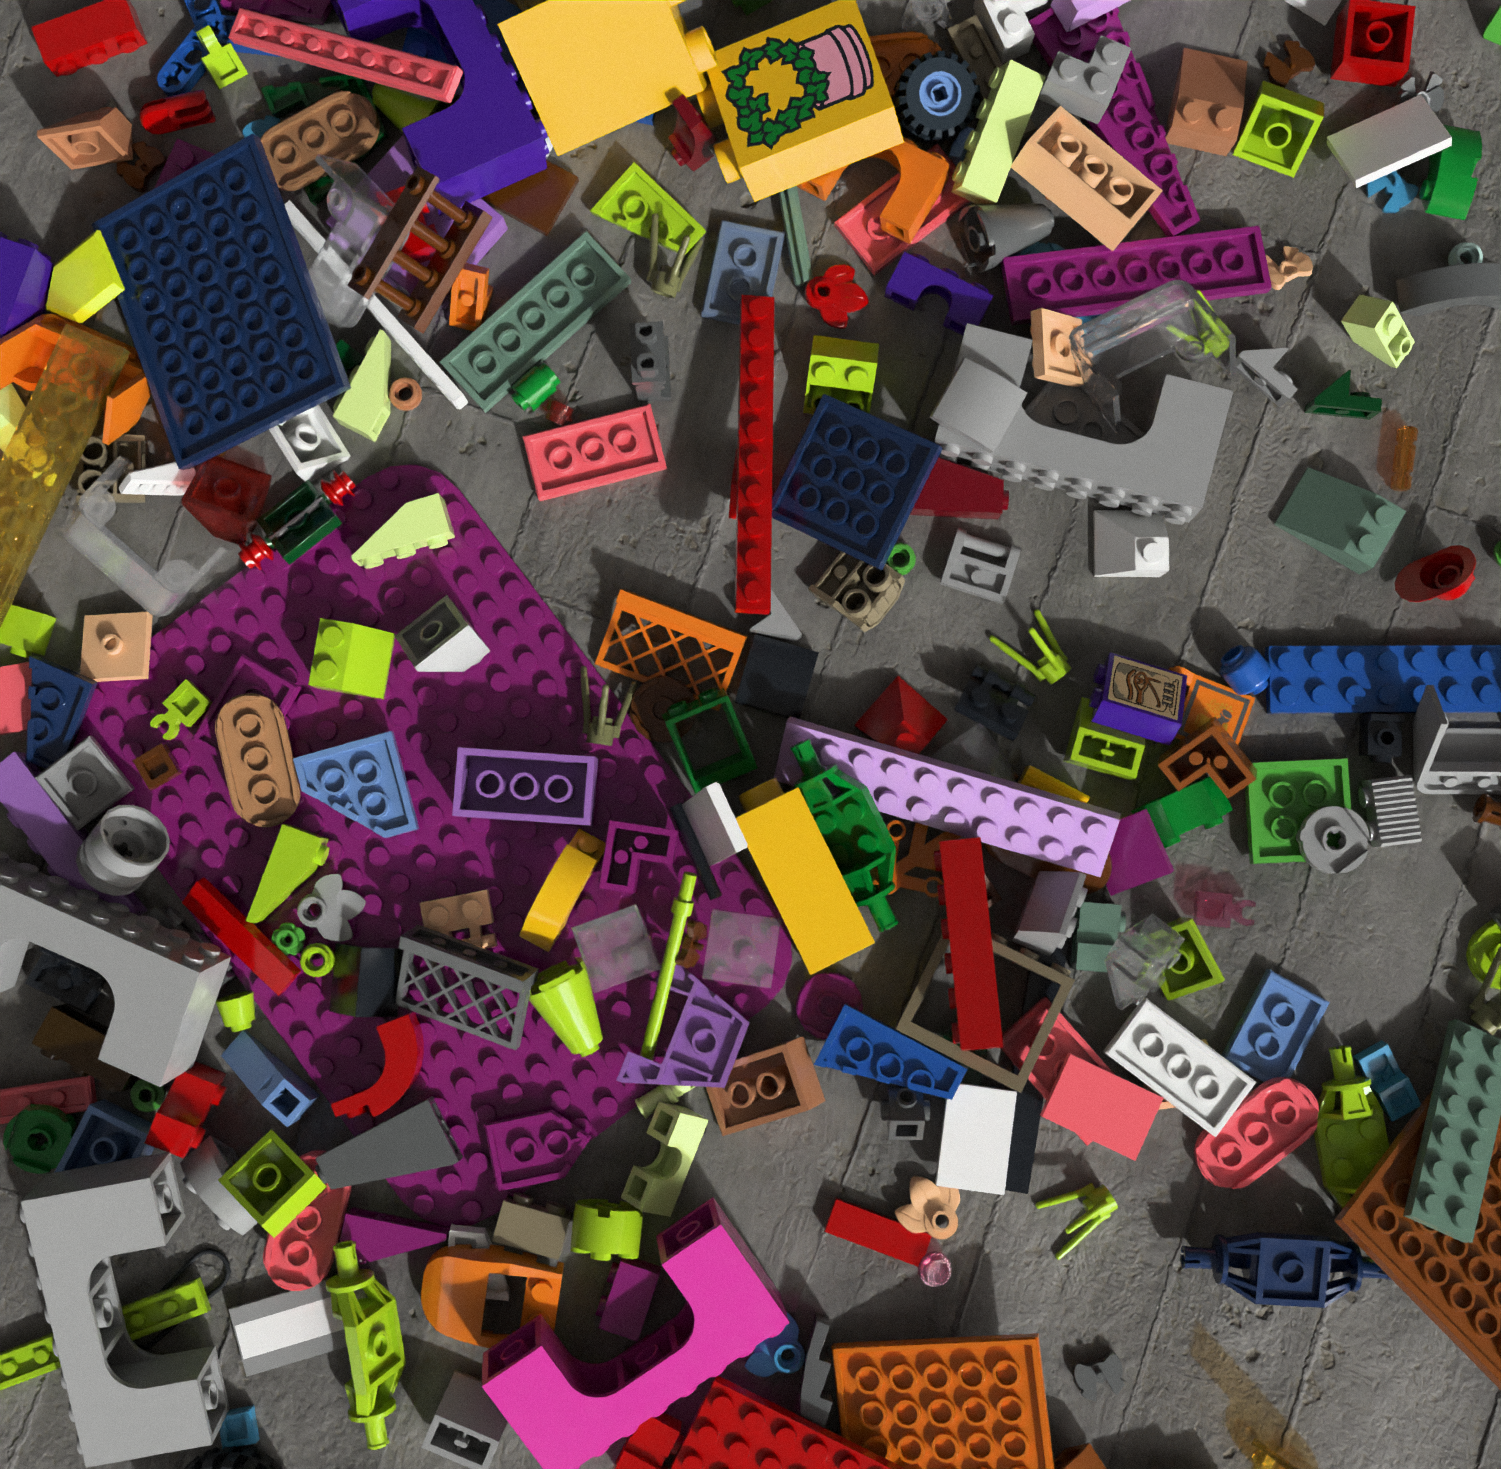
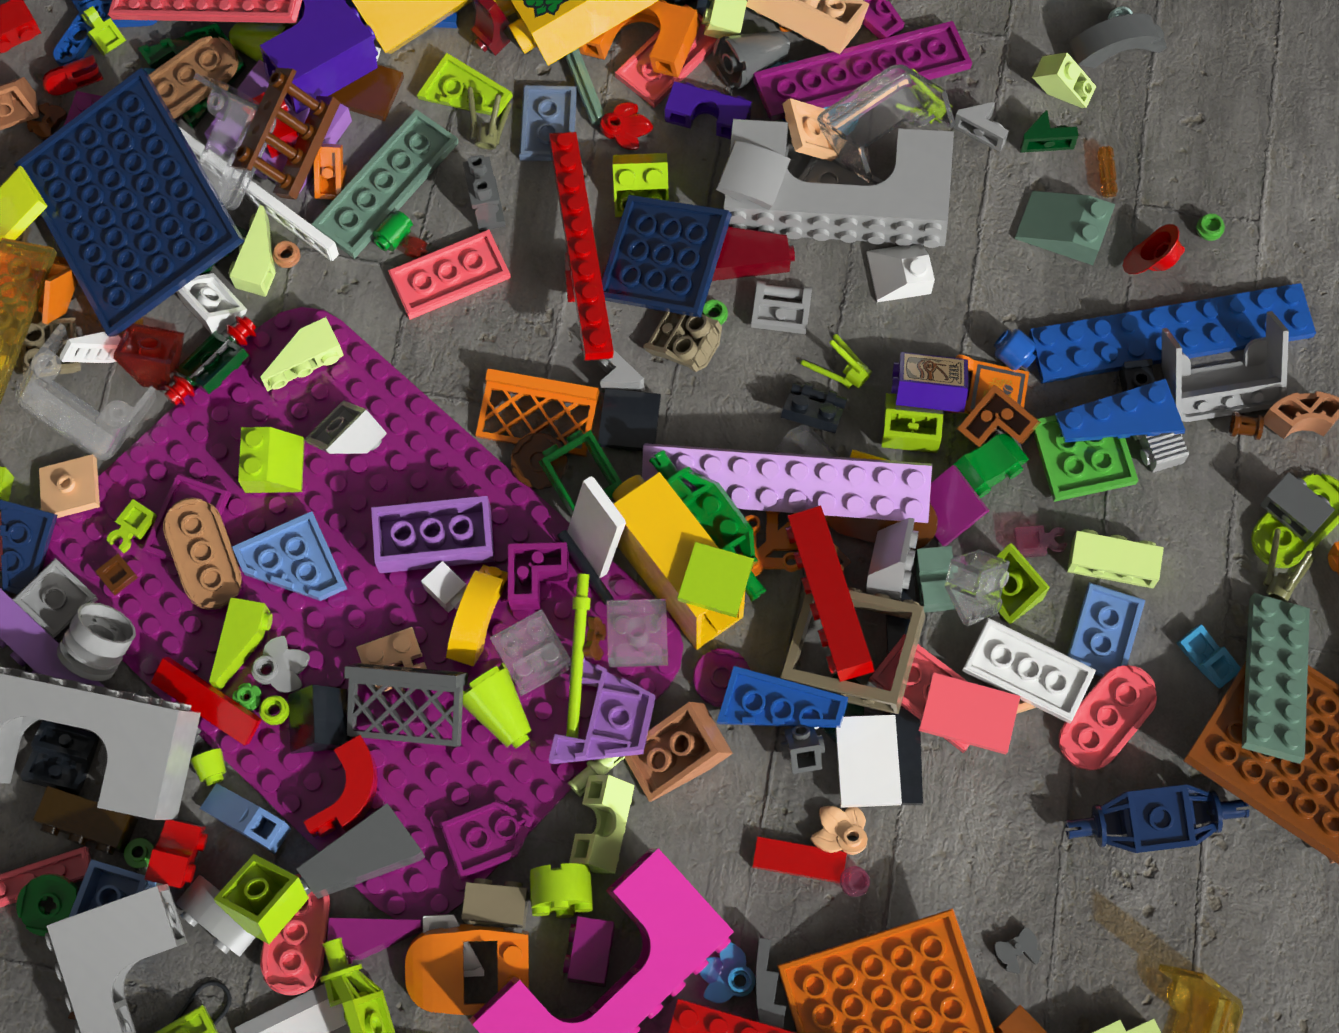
camera: 10 degrees left, 15 degrees down
(531, 851) = (444, 586): none -> white brick
(601, 728) = (489, 481): olive plant -> none
(840, 935) = (715, 579): none -> lime tile
(901, 718) = (740, 432): red slope -> none
(1098, 1206) = (984, 800): lime plant -> none
(1295, 265) = (987, 45): light nougat piece -> none
(1307, 947) = (1115, 558): none -> yellowish green brick
(1348, 1138) = (1186, 702): lime plate -> none
(1353, 839) = (1114, 480): light grey plate -> none
(1369, 781) = (1138, 411): none -> blue wing

